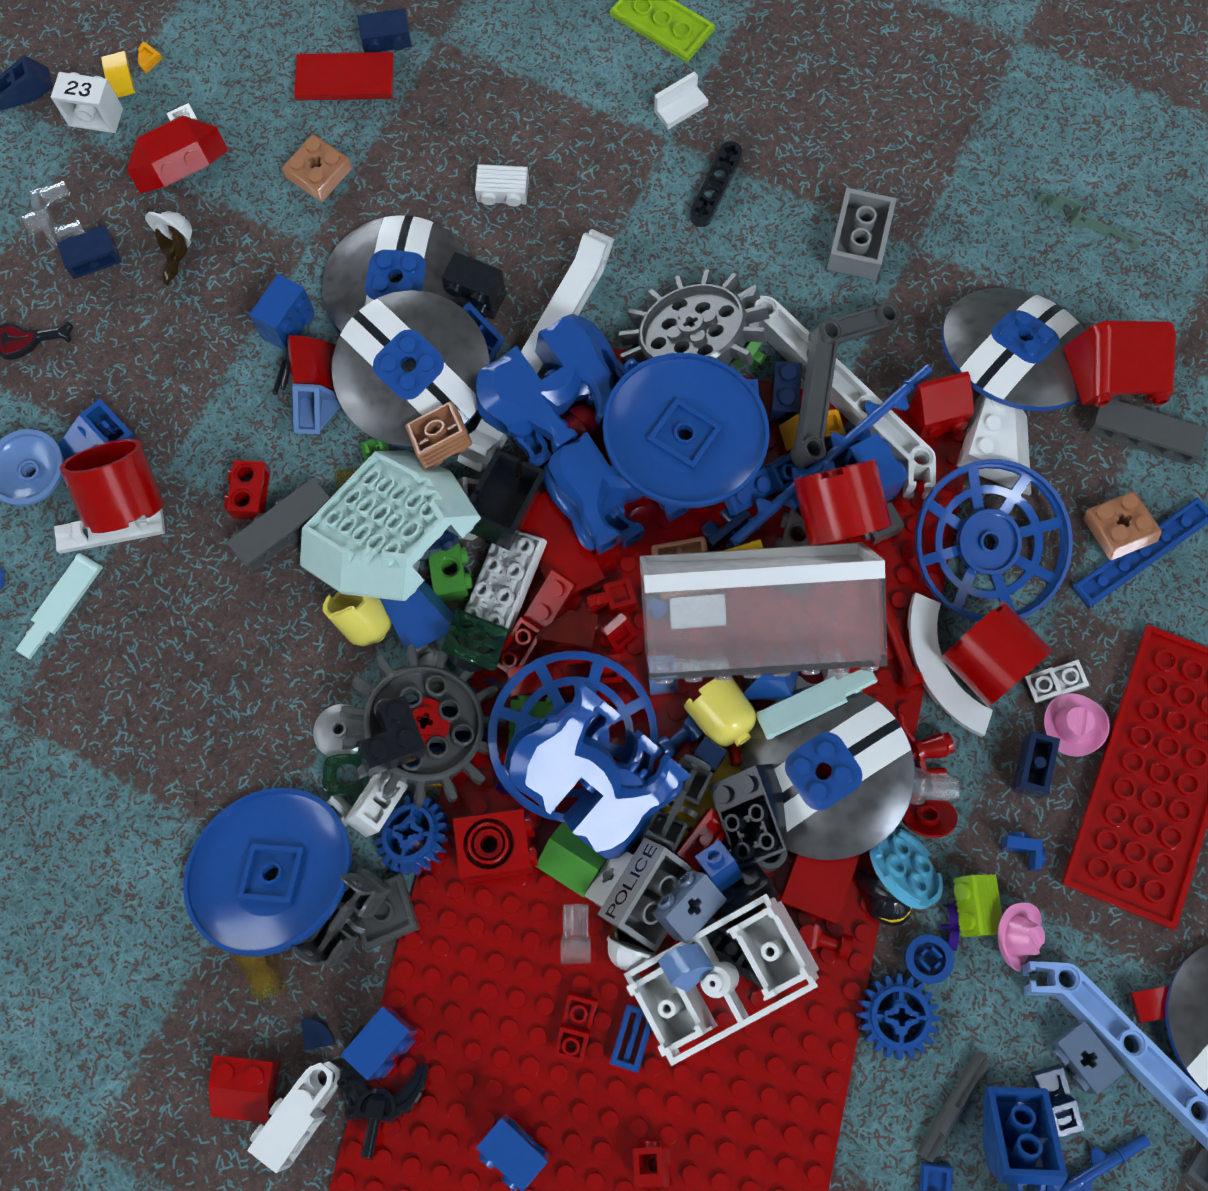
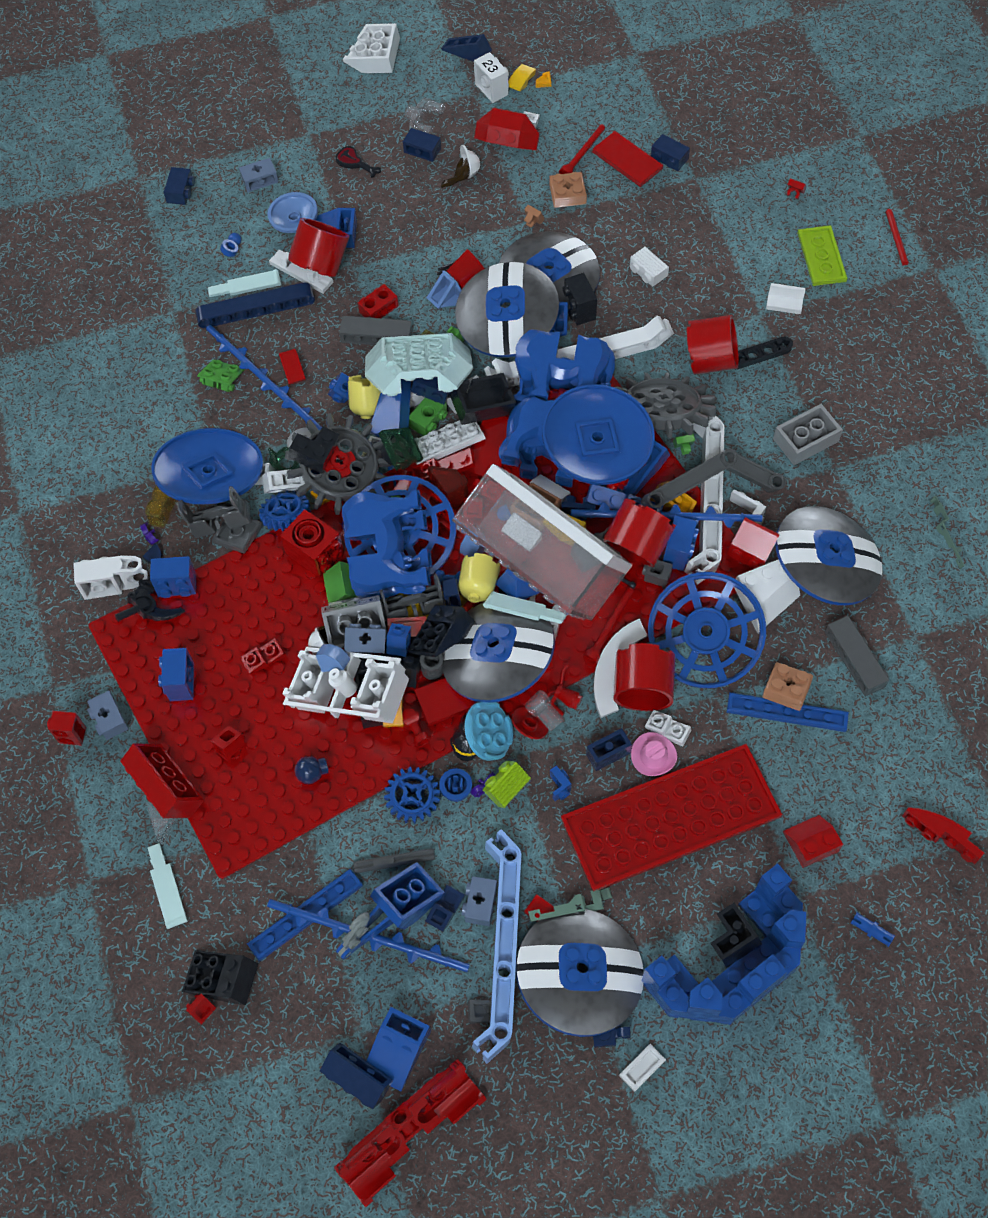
camera: 45 degrees right, 10 degrees down
(100, 622) = (254, 305): none -> dark blue beam
(151, 741) = (220, 375): none -> bright green hinge
(197, 696) = (261, 374): none -> blue plant
(228, 654) = (292, 366): none -> red slope
(242, 1087) = (100, 542): red slope -> none
(280, 1017) = (148, 534): none -> dark purple piece
(282, 311) = (477, 237): blue brick -> none
(291, 143) = (568, 168): none -> red piece
(312, 231) = (533, 216): none -> nougat tile
(317, 630) = (339, 388): none -> blue brick
(438, 435) = (484, 345): nougat brick -> none
(576, 938) = (302, 620): clear piece -> none
(625, 1063) = (269, 693): blue tile -> none
(670, 532) = (551, 487): none -> white slope
(676, 216) = (713, 344): none -> red brick
(770, 1102) = (310, 769): none -> dark blue piece
(785, 391) = (678, 467): dark blue brick -> none
(892, 360) = (747, 503): none -> white bracket
(1020, 934) = (510, 813): bright pink hat -> none
(1123, 360) = (876, 604): red windscreen -> none
(1182, 972) = (569, 908): none -> sand green piece

